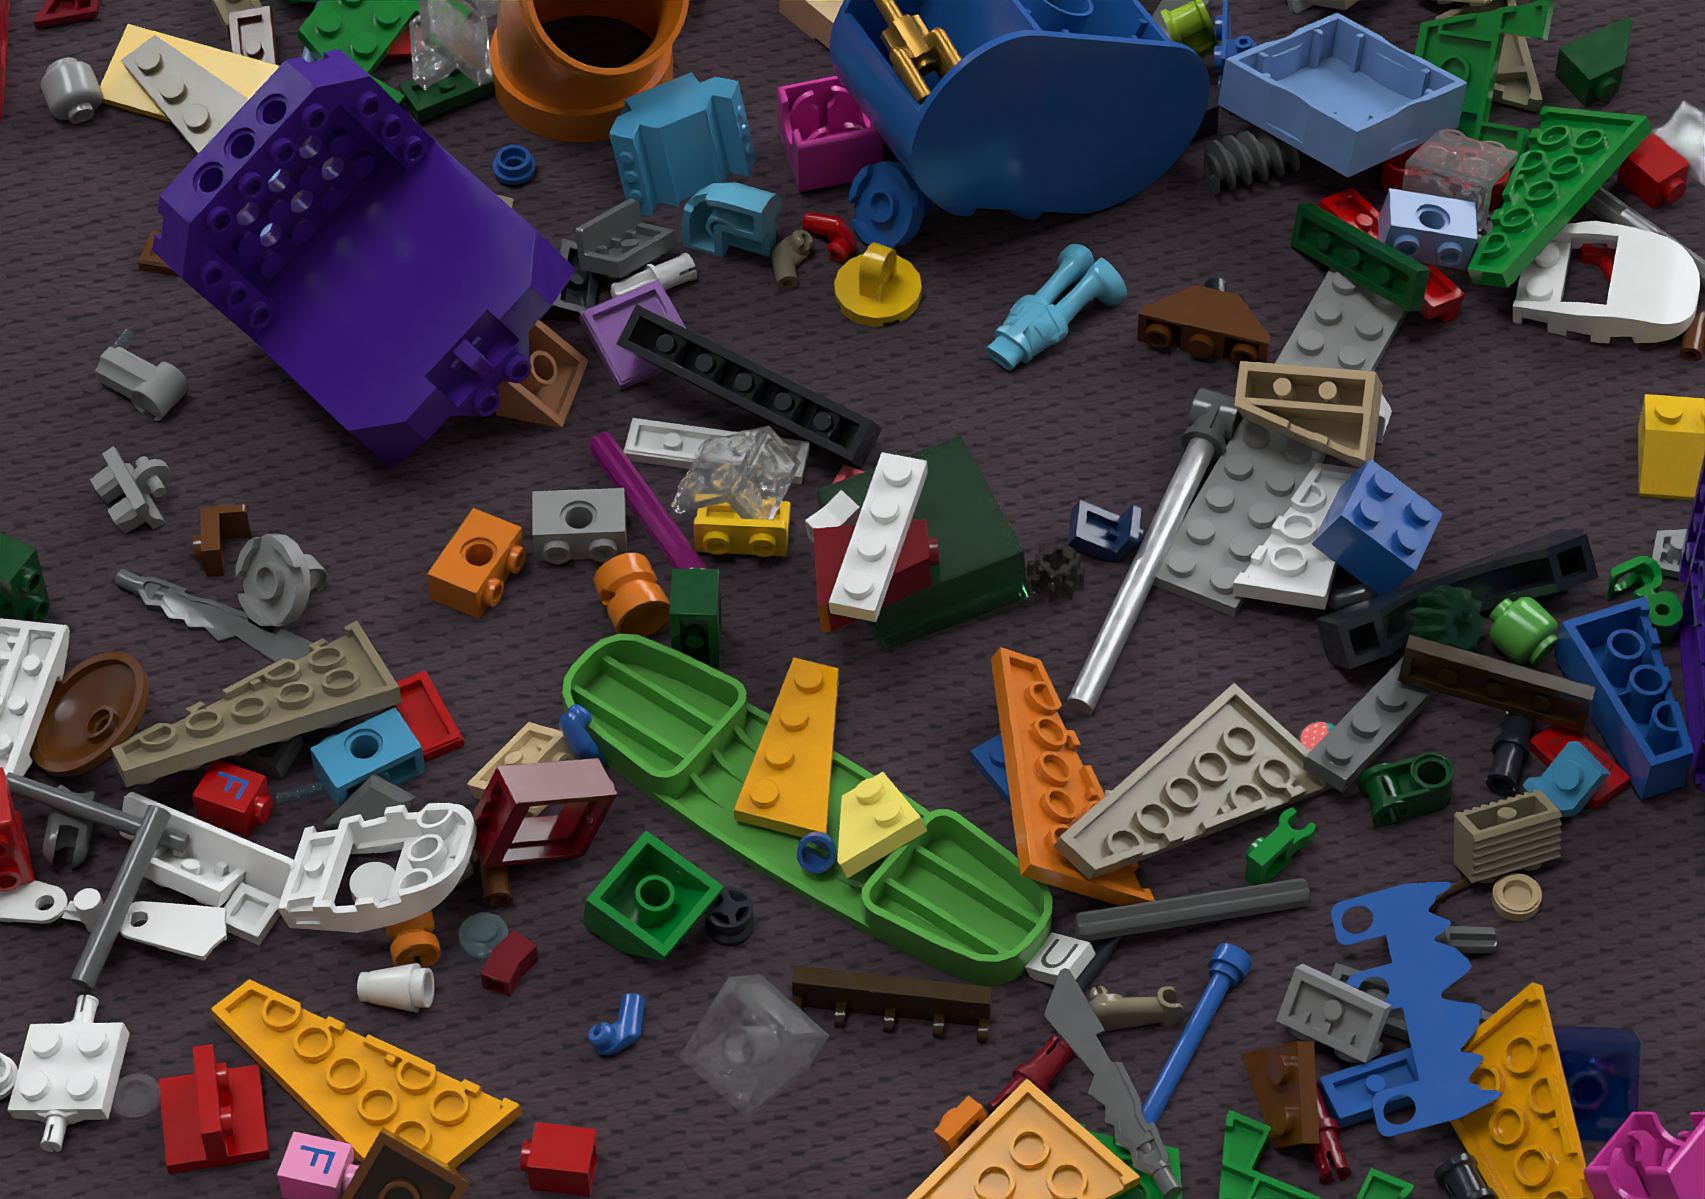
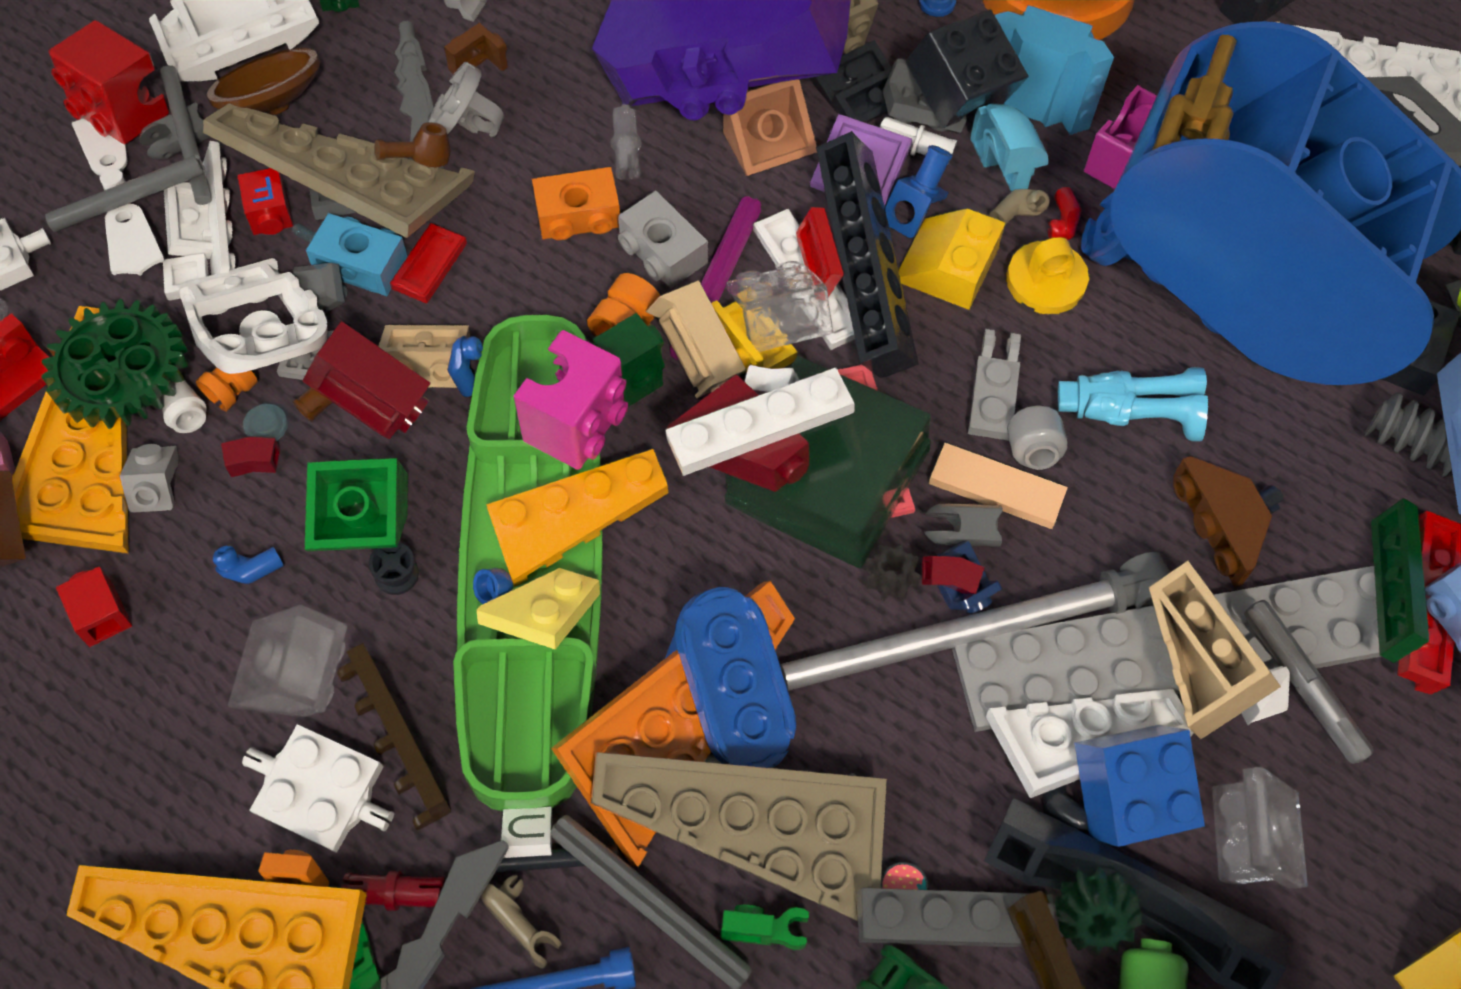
camera: 50 degrees right, 10 degrees up
(278, 997) = (109, 368): none -> dark green gear
(303, 634) = (428, 147): none -> reddish brown bar
(440, 488) = (626, 142): none -> clear axle
(460, 1049) = (148, 478): none -> light grey bracket
(644, 186) = (966, 67): none -> black piece
(708, 414) = (819, 248): none -> red tile
(710, 309) = (919, 190): none -> blue bracket
(718, 654) = (576, 412): none -> dark pink piece
(745, 561) = (697, 337): none -> tan window
(799, 332) = (952, 255): none -> yellow slope
(887, 1088) = (317, 788): none -> white plate
(948, 394) = (995, 389): none -> light grey hinge
(1025, 396) = (1037, 437): none -> light grey head
(1042, 454) = (998, 484): none -> light nougat tile
(1059, 495) = (970, 523): none -> dark grey piece
(1060, 725) = (735, 678): none -> blue tile
(1099, 528) = (952, 572): none -> dark red piece
(1394, 375) = (1309, 682): none -> flat silver axle
(1470, 492) = (1259, 831): none -> clear bracket

